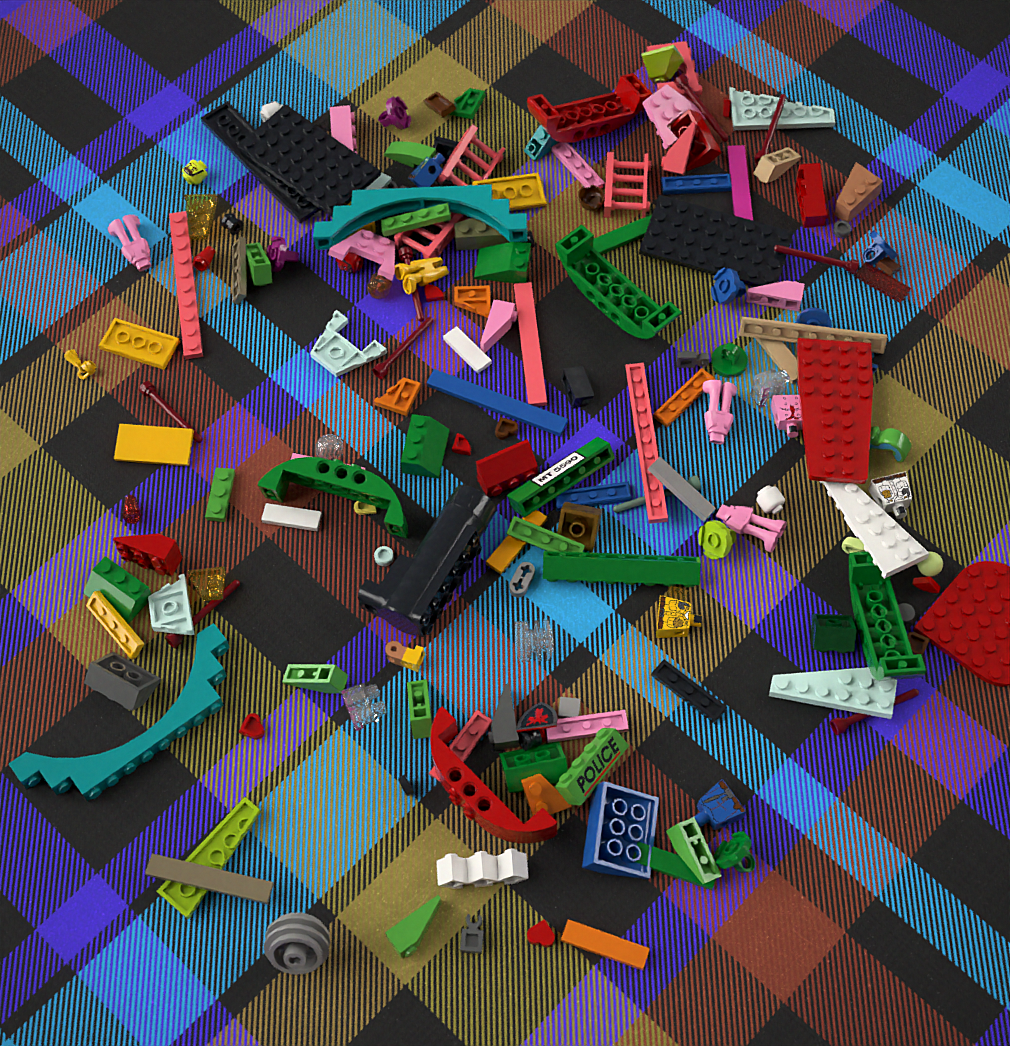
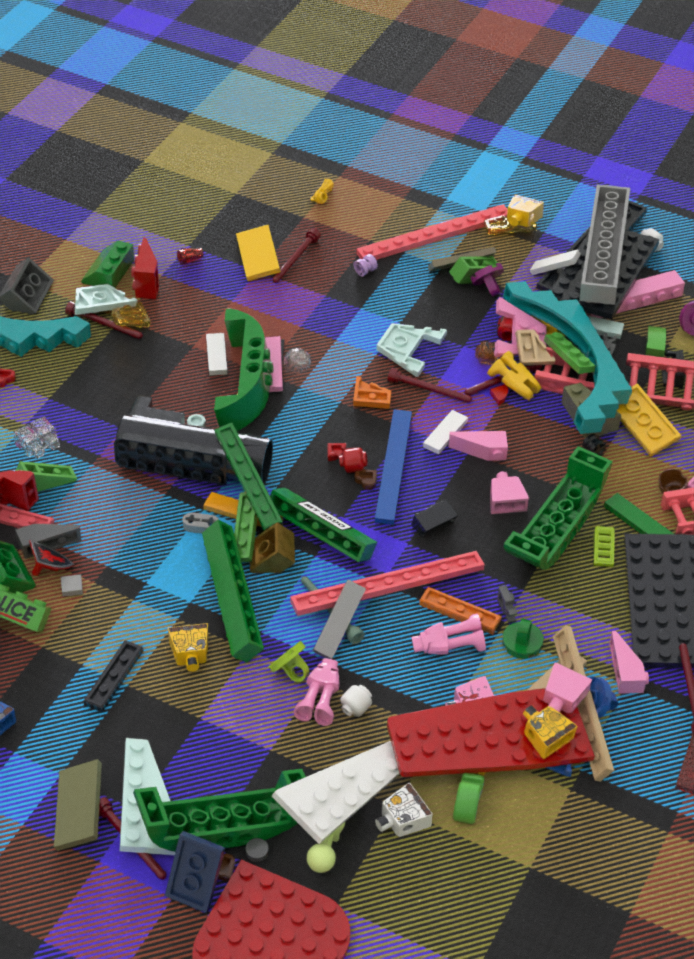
camera: 70 degrees right, 15 degrees down
(115, 624) = (76, 271): yellow tile -> none
(138, 250) = (453, 193): bright pink piece -> none
(139, 343) = (359, 221): yellow tile -> none
(194, 172) = (555, 207): neon yellow head -> none
(197, 198) = (524, 211): none -> yellow torso
(204, 258) = (465, 236): red cone -> none
(214, 354) = (364, 265): none -> lavender wheel
(220, 494) = (218, 305): bright green plate -> none
(232, 223) = (511, 243): black wheel -> none
(282, 194) = (555, 262): none -> white tile
(290, 142) = (605, 245): none -> light grey brick
(316, 677) = (56, 404): bright green slope -> none
(398, 247) = (532, 349): none -> tan wing
(405, 656) = (94, 456): leg -> none
(421, 176) = (621, 346): blue torso -> none
(424, 447) = (320, 421): green slope -> none
(473, 299) = (507, 420): orange wing -> none
(485, 431) = (353, 460): none -> red head
(502, 516) = (248, 476): none -> green tile
(504, 262) = (558, 437): green slope -> none
(506, 468) = (314, 480): red slope -> none
(529, 738) = (27, 558): black wheel -> none
(530, 344) = (471, 476): coral tile -> none
(533, 641) = (128, 535): clear wheel -> none
(563, 323) = (507, 495): none -> bright pink torso
(587, 725) = (52, 594): bright pink plate -> none
(595, 495) = (314, 559): blue tile -> none
(645, 266) = (603, 534): none -> lime slope
(677, 593) = (217, 646): clear yellow tile -> none
(727, 286) = (613, 617): blue tile -> none
(768, 384) = (497, 669): clear hips -> none
(814, 339) = (566, 688): none -> bright pink torso
(833, 632) = (210, 777): dark green slope -> none
(835, 744) = (78, 805): none -> olive tile
(852, 363) = (548, 730): none -> yellow torso
(926, 584) = (298, 865): red tile -> none
(937, 658) = (194, 871): none -> dark blue plate

